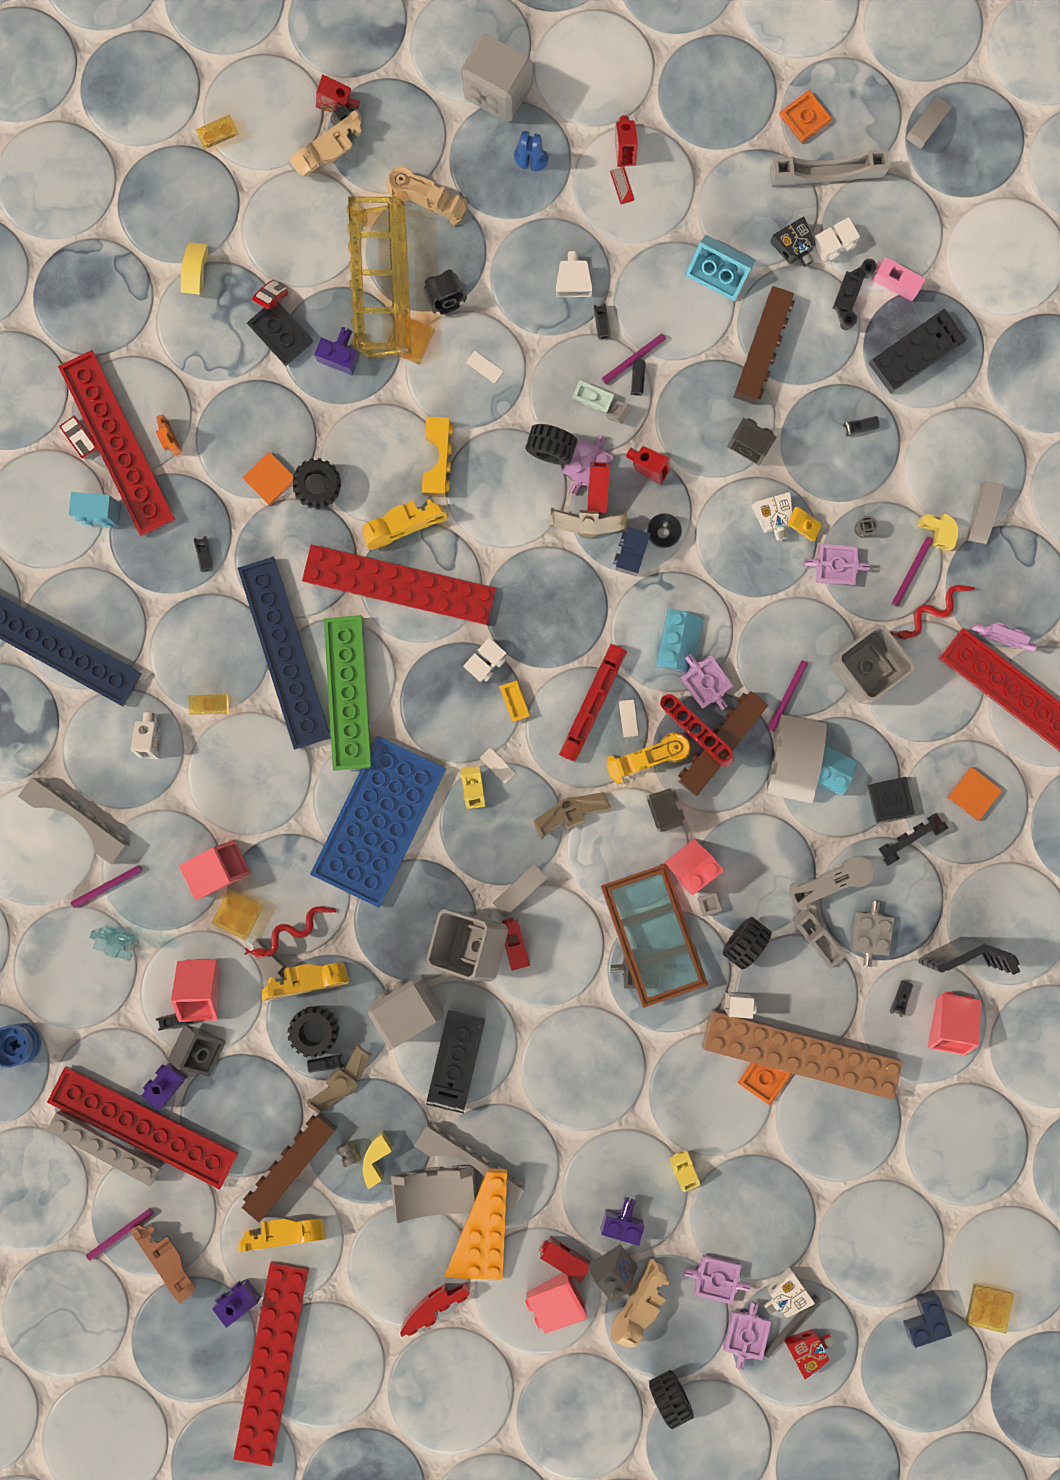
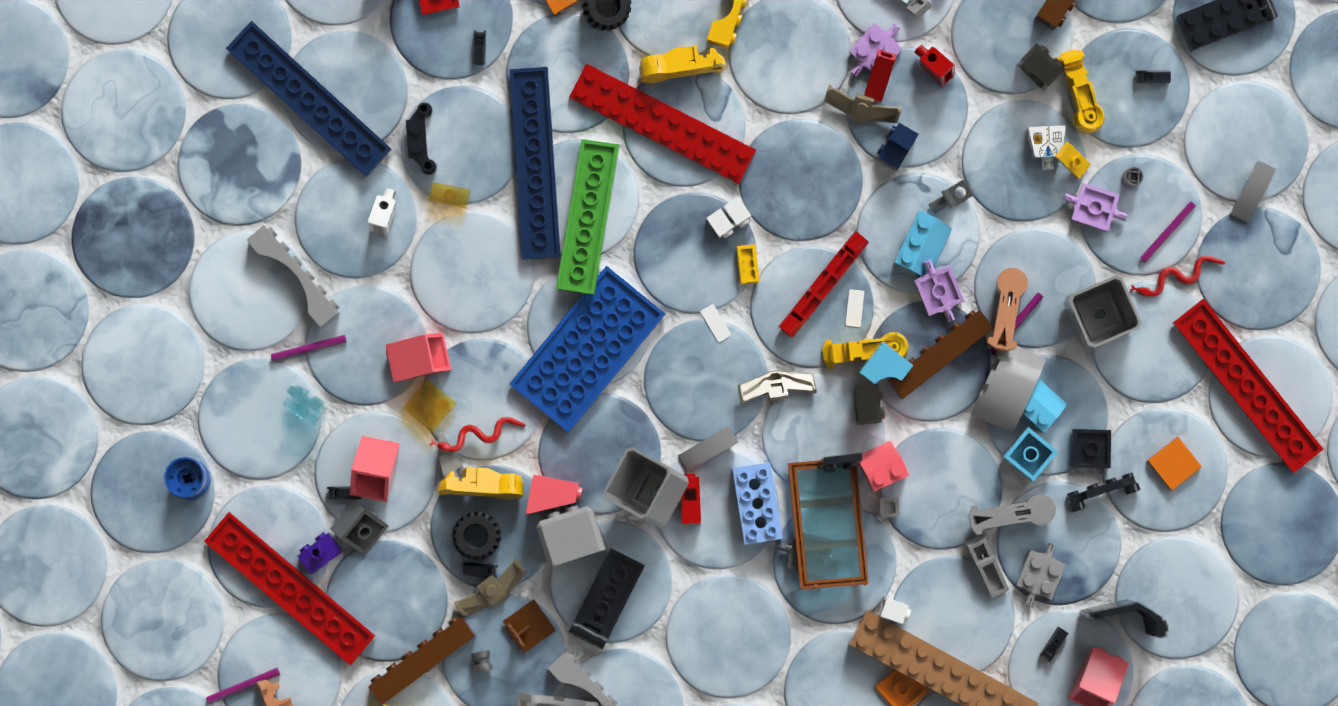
camera: 20 degrees right, 0 degrees up
(80, 1134) = (251, 599): light grey arch -> none
(163, 656) = (418, 140): none -> black plate
(376, 972) = (551, 493): none -> coral slope
(377, 1149) = (510, 664): light yellow brick -> none
(385, 1108) = (528, 626): none -> reddish brown plate
(472, 787) = (687, 338): light yellow brick -> none
(551, 444) = (844, 23): black tyre -> none
(593, 937) = (769, 509): none -> light blue brick
(658, 871) = (847, 461): none -> black plate
(664, 521) = (938, 124): black piece -> none
(672, 765) = (885, 363): none -> medium azure tile
(692, 722) = (919, 343): red beam -> none
(694, 590) = (949, 197): none -> dark grey bracket
(747, 943) = (916, 552): black tyre -> none
(775, 661) = (1011, 287): none -> nougat piece
(808, 476) = (1088, 114): none -> yellow piece
(833, 819) = (1029, 454): none -> medium azure brick
(945, 530) = (1209, 198): light yellow brick -> none
(999, 633) = (1235, 312): lavender plate -> none

